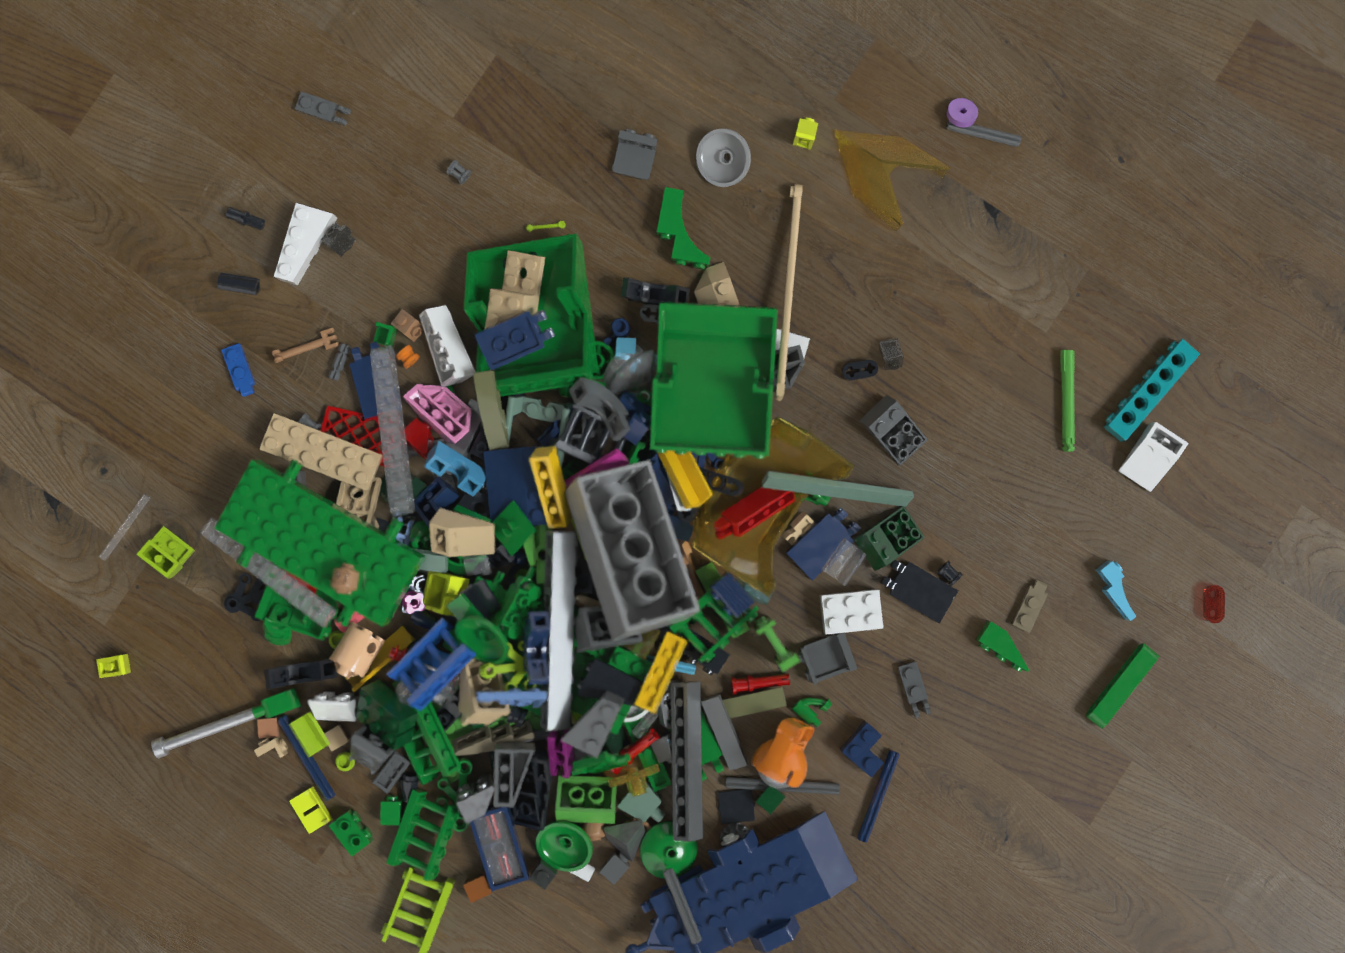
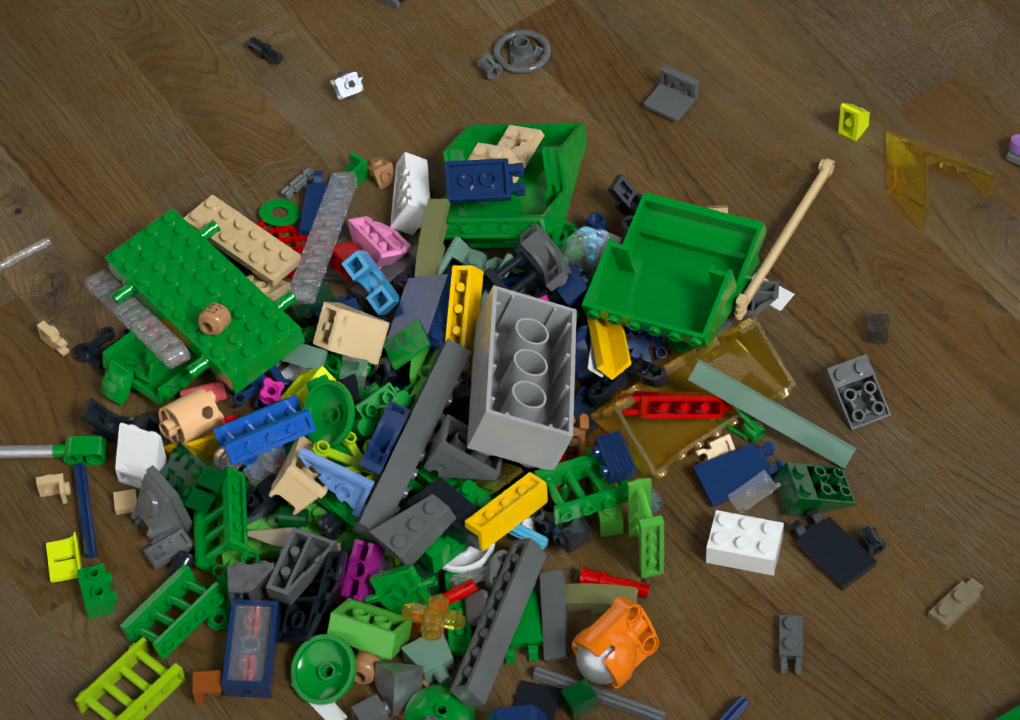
camera: 30 degrees right, 35 degrees down
(166, 553) = (42, 286): lime brick -> none
(196, 598) = (50, 336): none -> tan plate
(238, 284) = (231, 96): black axle -> none
(239, 369) = (196, 164): blue hinge -> none
(268, 727) = (59, 467): nougat tile -> none
(302, 242) = (308, 79): white wedge -> none
(309, 734) = (101, 486): lime panel -> none
(325, 340) = (296, 163): medium nougat hinge -> none
(337, 411) = (293, 212): none -> green piece
(343, 762) = (124, 525): lime plate -> none
(391, 810) = (148, 582): green brick -> none
(407, 356) = (368, 195): orange wheel -> none
(480, 141) = (522, 51): none -> dark grey piece
(543, 874) = (287, 694): pearl dark grey brick -> none
(672, 226) = (685, 160): green arch -> none
(712, 157) = (761, 115): light grey dish -> none
(806, 713) = (679, 627): green plant -> none
(827, 658) = (700, 583): dark grey panel -> none
(859, 365) = (838, 332): black beam -> none
(859, 746) = (704, 680): dark blue brick -> none
(1000, 642) = (906, 623): green slope -> none

